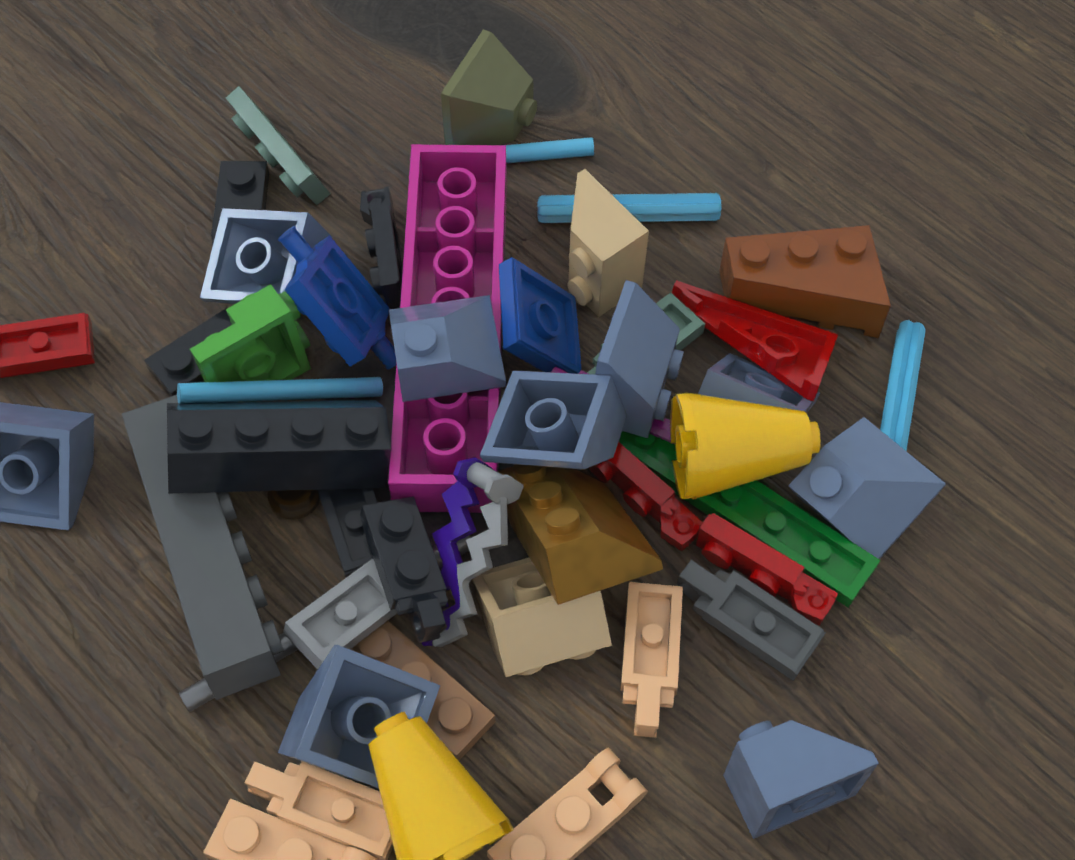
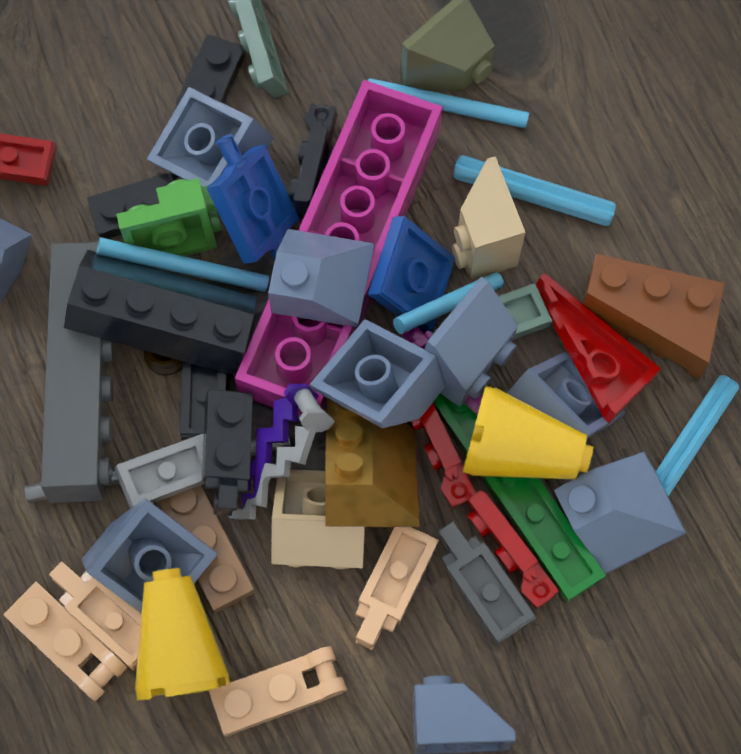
camera: 20 degrees right, 10 degrees up
(580, 345) = (440, 306): none -> medium azure bar

